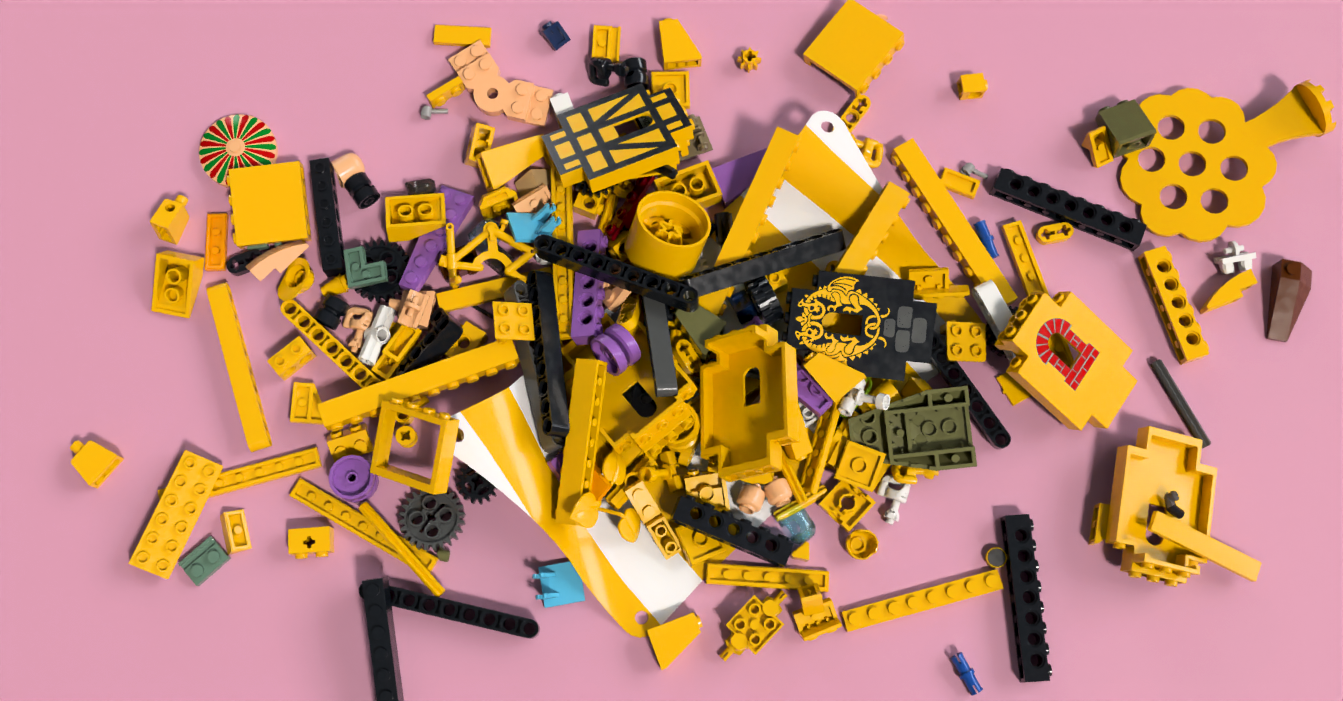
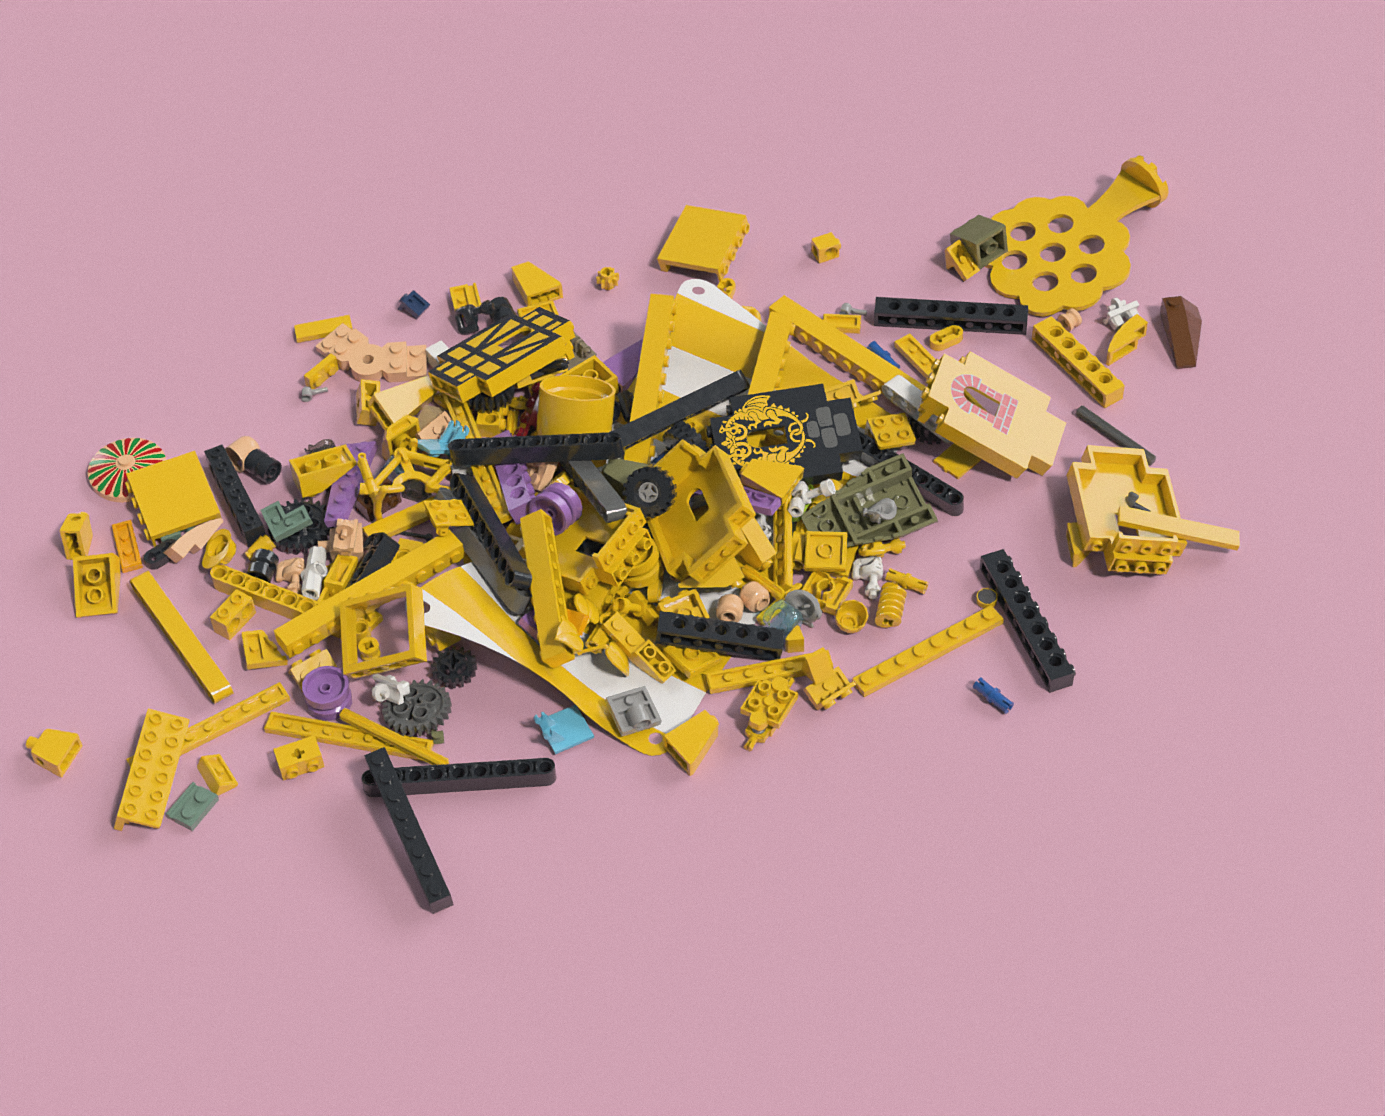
camera: 10 degrees left, 25 degrees down
(405, 498) = (389, 689): none -> white hips
(627, 588) = (633, 711): none -> light grey plate
(699, 364) = (640, 492): none -> black wheel
(822, 519) = (806, 604): none -> light grey hat
(902, 542) = (890, 605): none -> yellow piece
(926, 436) = (882, 510): none -> light grey hat
(927, 514) = (907, 581): none -> yellow pin
(1181, 251) = (1070, 319): none -> light nougat wheel

